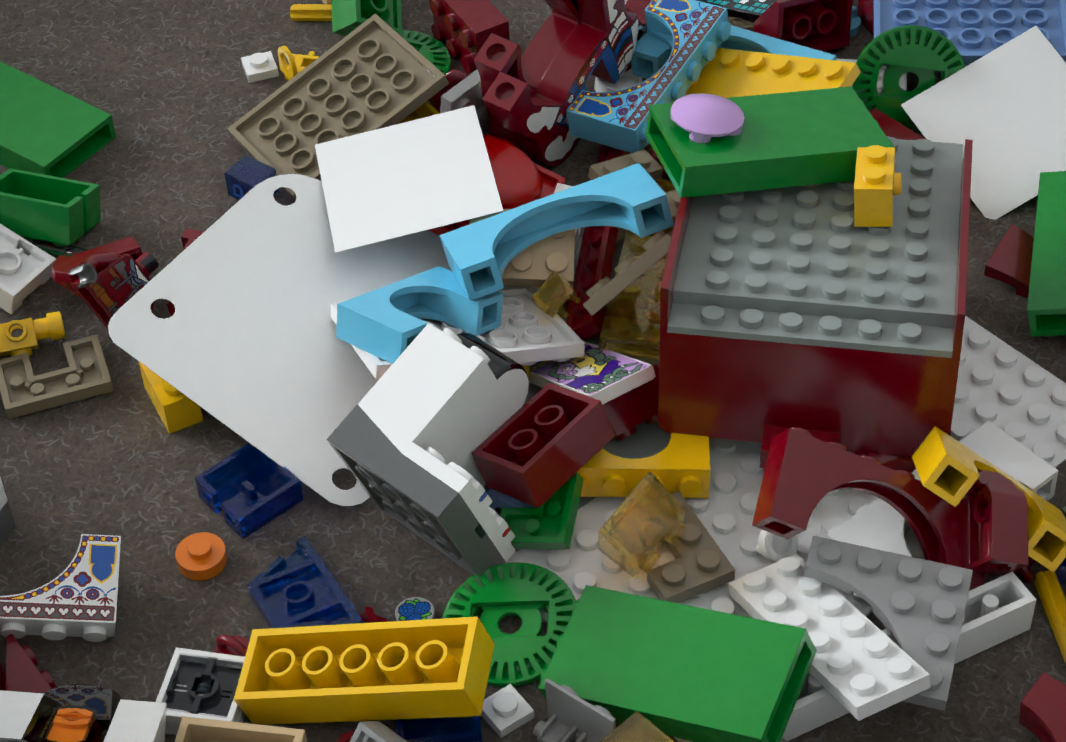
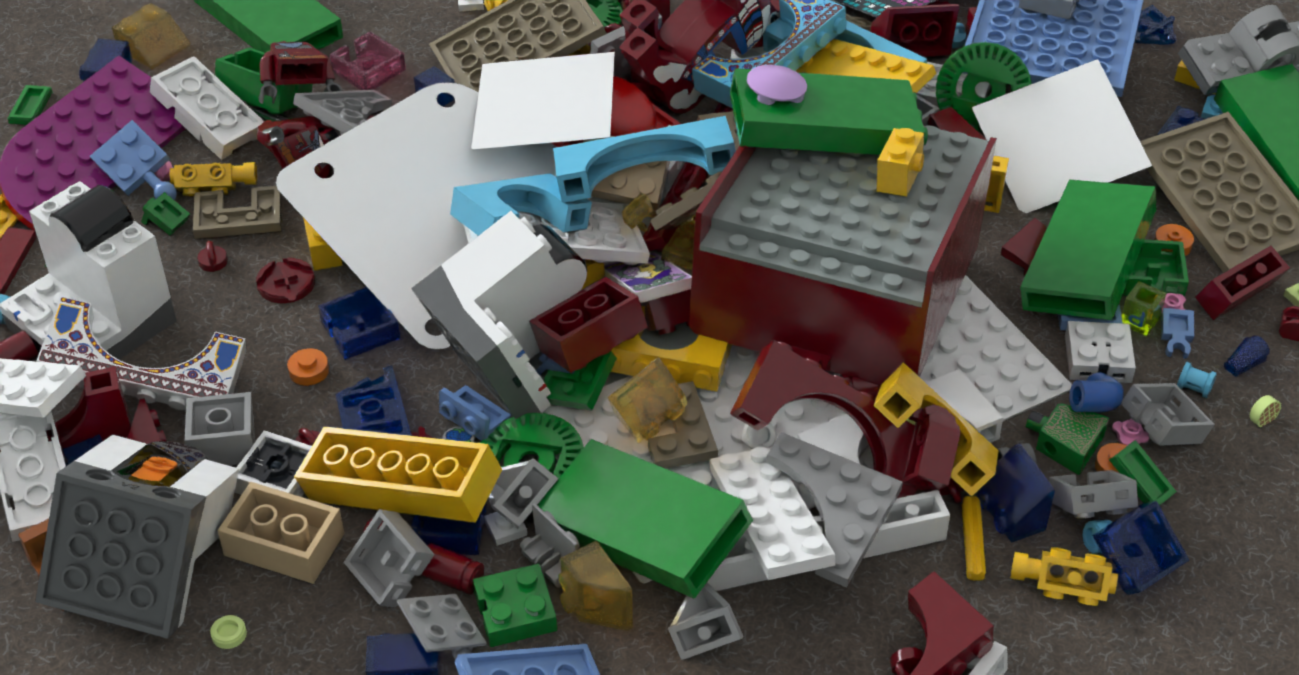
camera: 10 degrees right, 0 degrees up
(38, 440) = (212, 258): none -> dark red tile
(82, 181) = (294, 64): none -> dark red torso
(120, 652) = (221, 426): none -> light grey slope
(138, 452) = (285, 280): none -> dark red tile
(152, 226) = (342, 108): none -> light grey plate
(166, 164) = (375, 63): none -> clear pink piece
(422, 576) = (471, 411): none -> medium blue bracket
(520, 664) = (519, 488): none -> light grey slope

